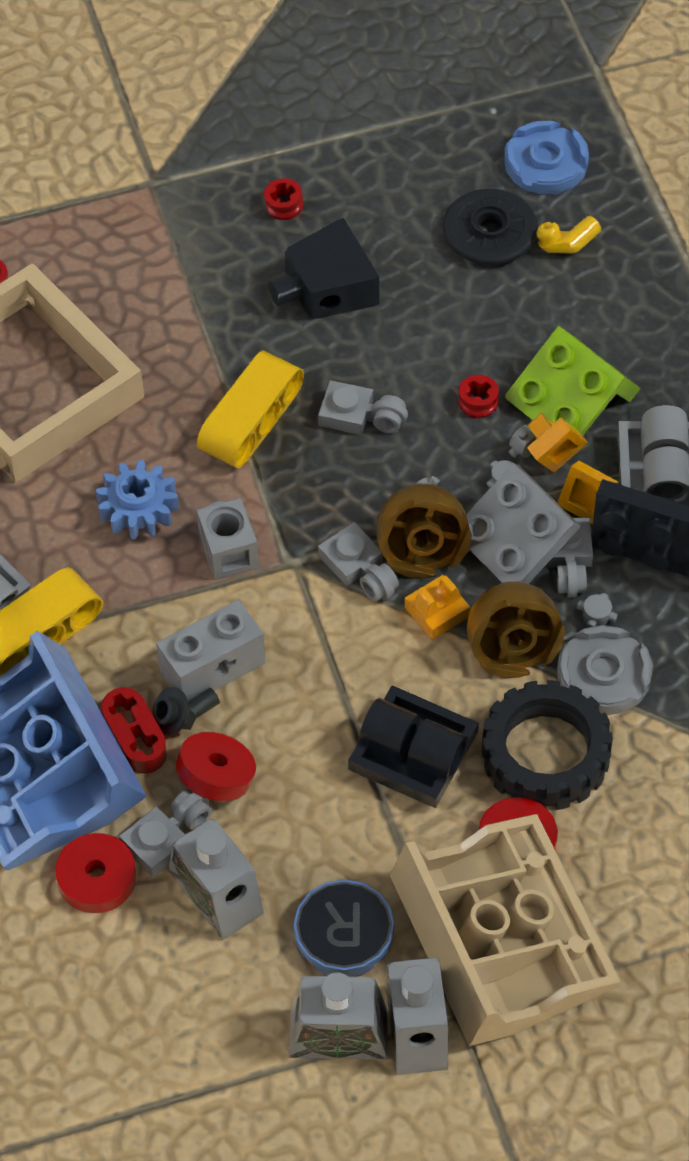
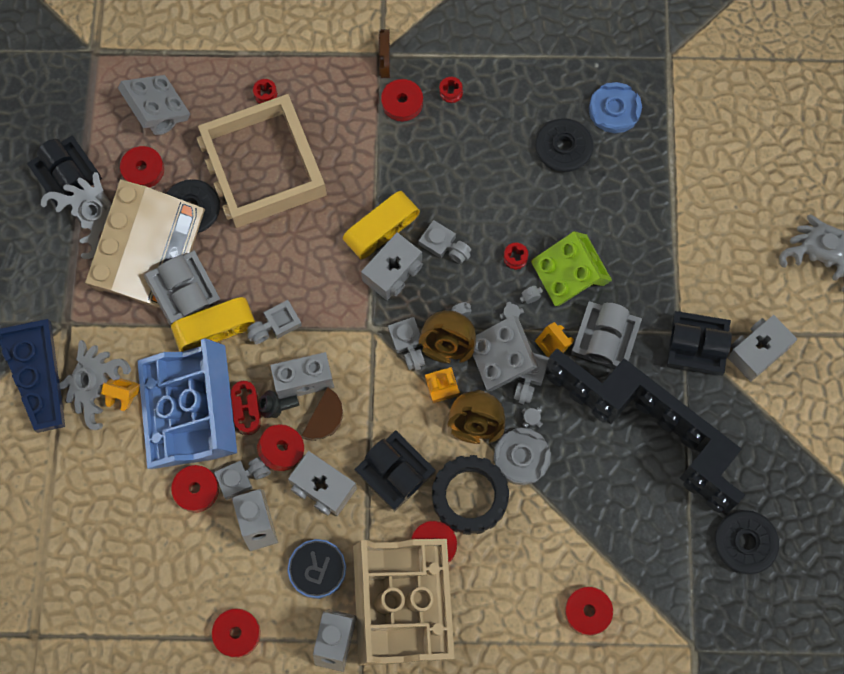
camera: 20 degrees right, 15 degrees up
(137, 499) = (285, 263): medium blue gear -> none
(141, 586) = (279, 319): none -> light grey plate
(160, 175) = (384, 53): none -> reddish brown tile
(215, 248) = (402, 110): none -> red piece
(227, 553) = (338, 315): light grey brick -> none
(251, 1086) = (249, 633): none -> red piece
(270, 706) = (325, 418): none -> reddish brown tile
(292, 461) = (395, 253): none -> light grey brick
(327, 274) = (456, 149): black torso -> none
(328, 793) = (314, 470): none -> light grey brick
(338, 1018) = (291, 628): light grey torso -> none
(555, 442) = (545, 303): light orange tile -> none
(572, 241) = (605, 168): yellow arm -> none

